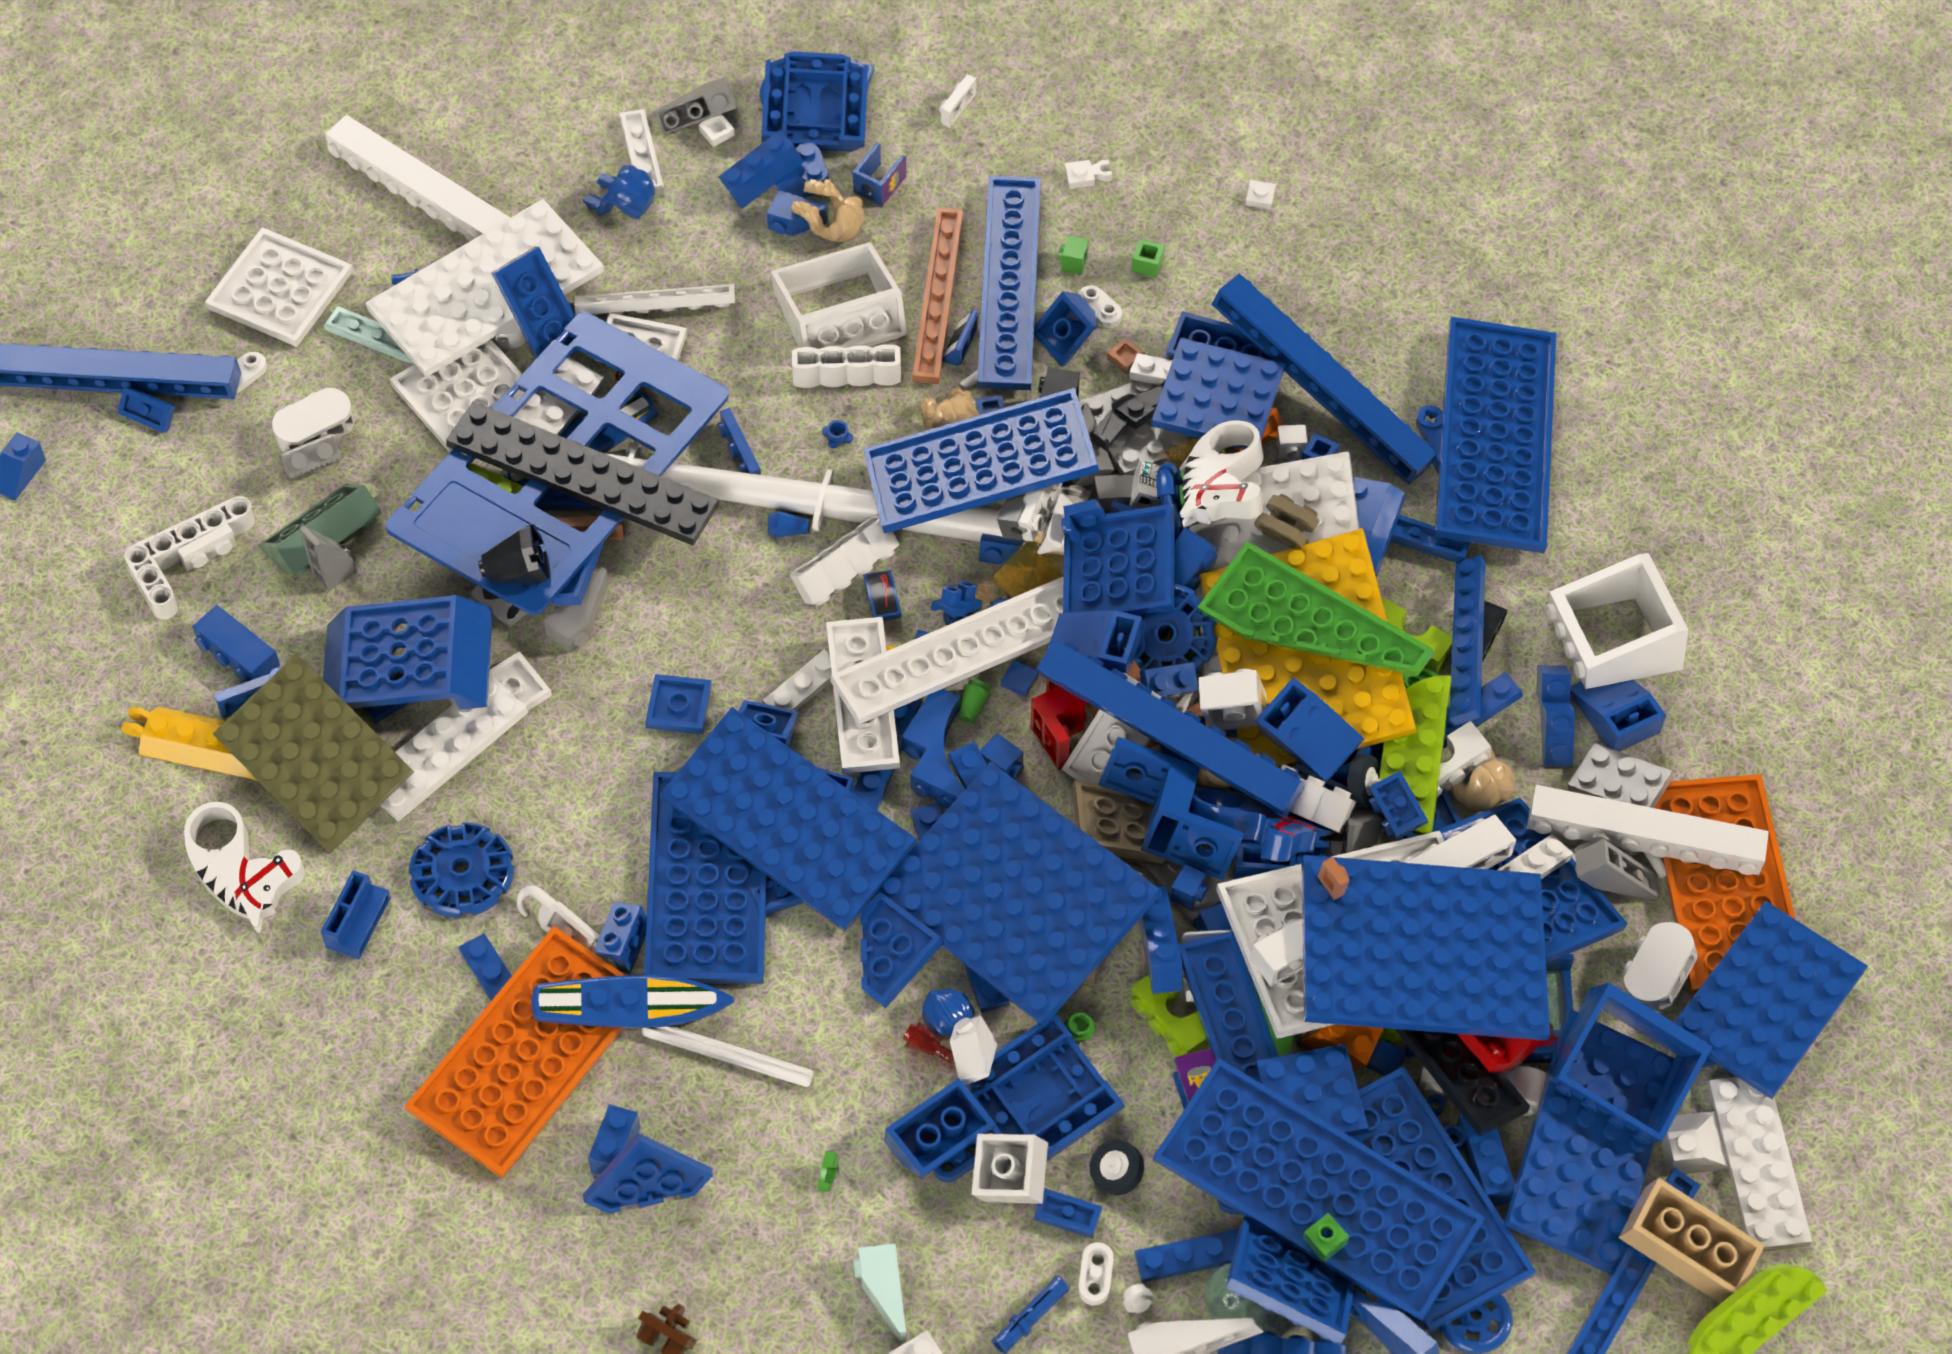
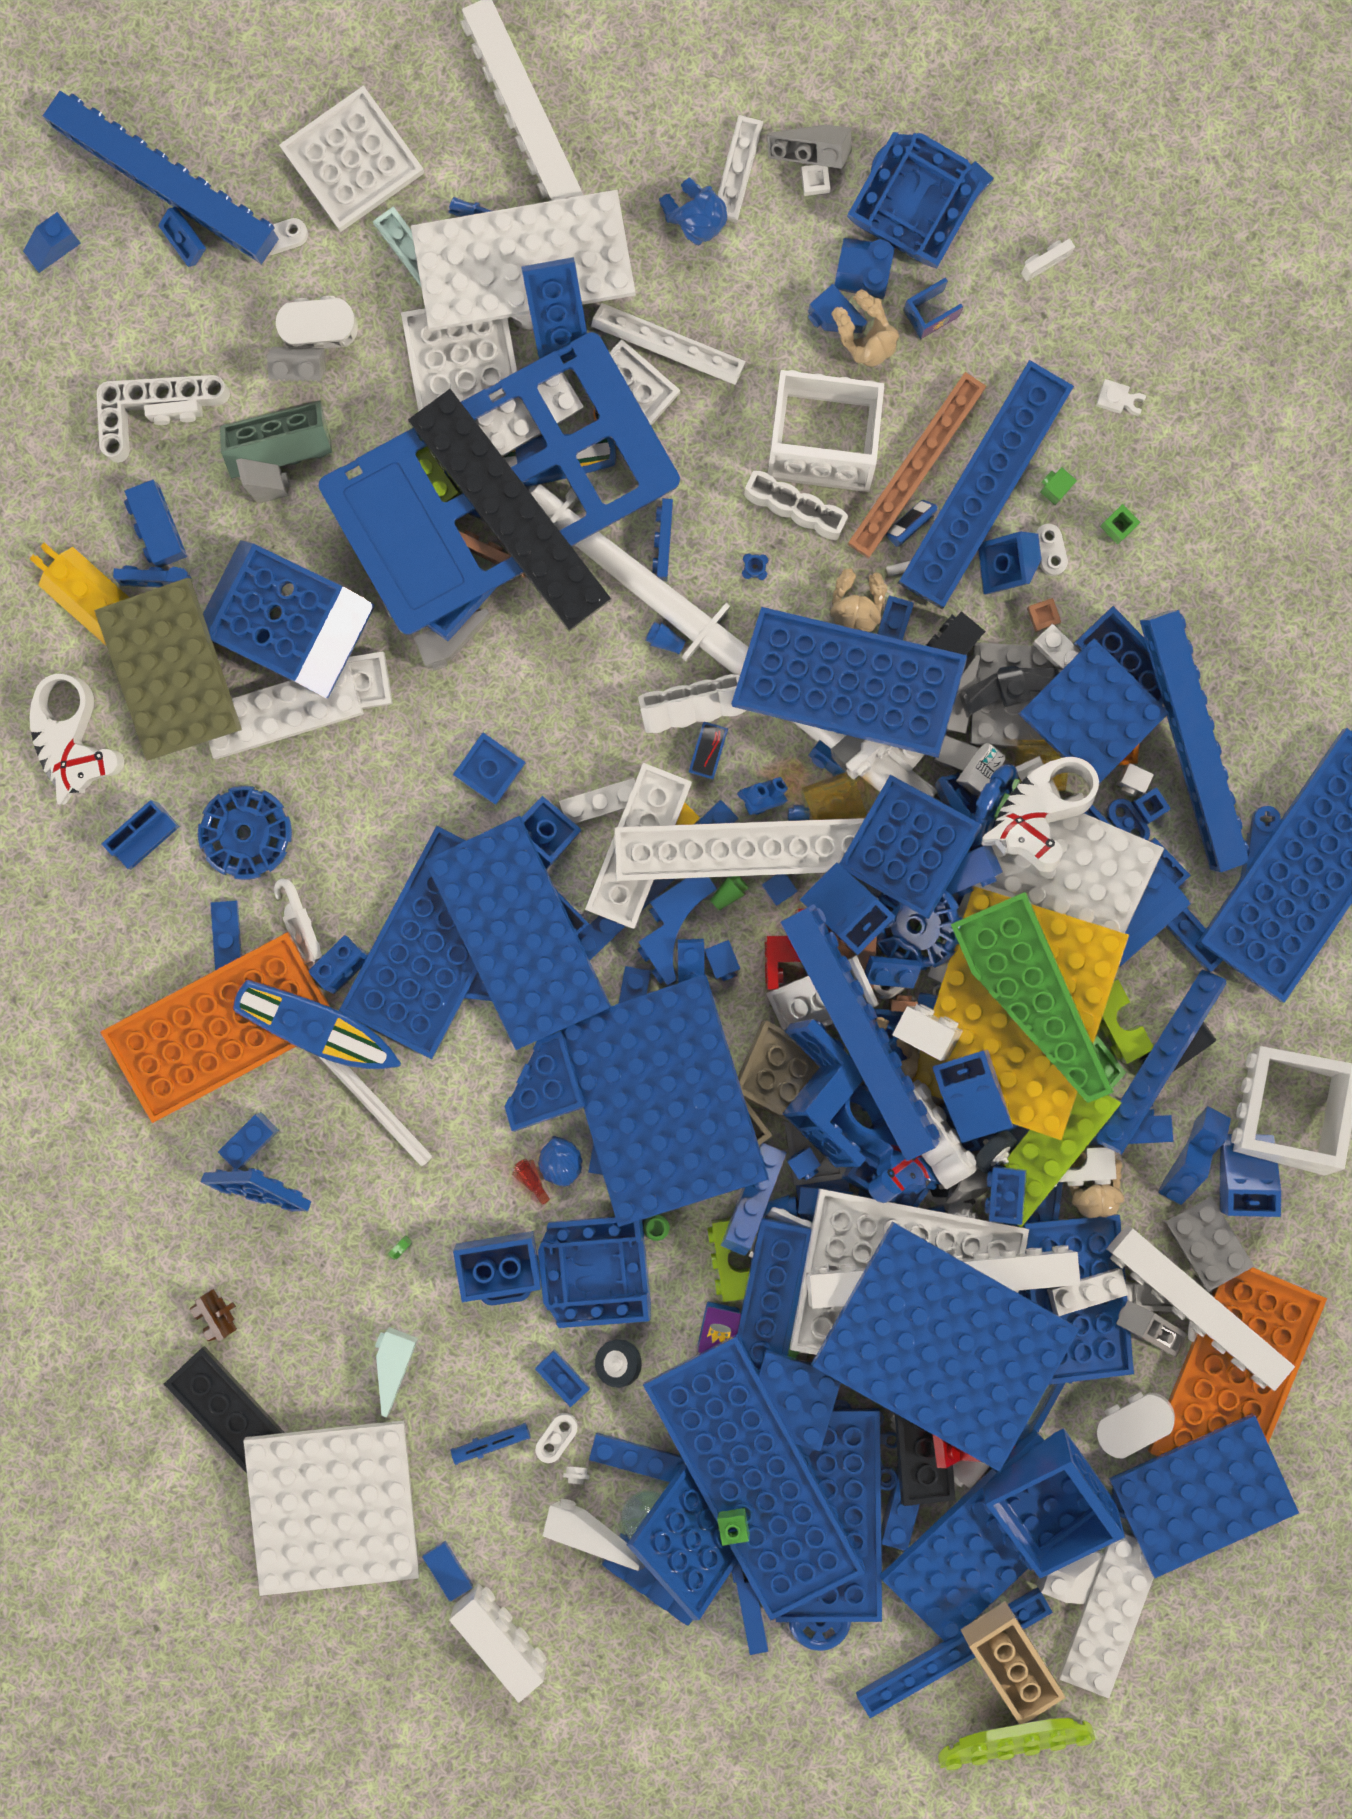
camera: 25 degrees right, 30 degrees up
(517, 559) = (409, 581): black cone -> none
(761, 169) = (828, 252): blue brick -> none
(972, 1049) = (557, 1215): white slope -> none
(1009, 1168) = (532, 1329): white brick -> none
(1053, 531) = (879, 776): white slope -> none
(1081, 514) = (905, 788): blue bracket -> none
(1260, 194) = (1260, 502): white plate -> none
(1284, 508) = (1086, 893): dark tan brick -> none
(1333, 877) = (903, 1266): nougat plate -> none

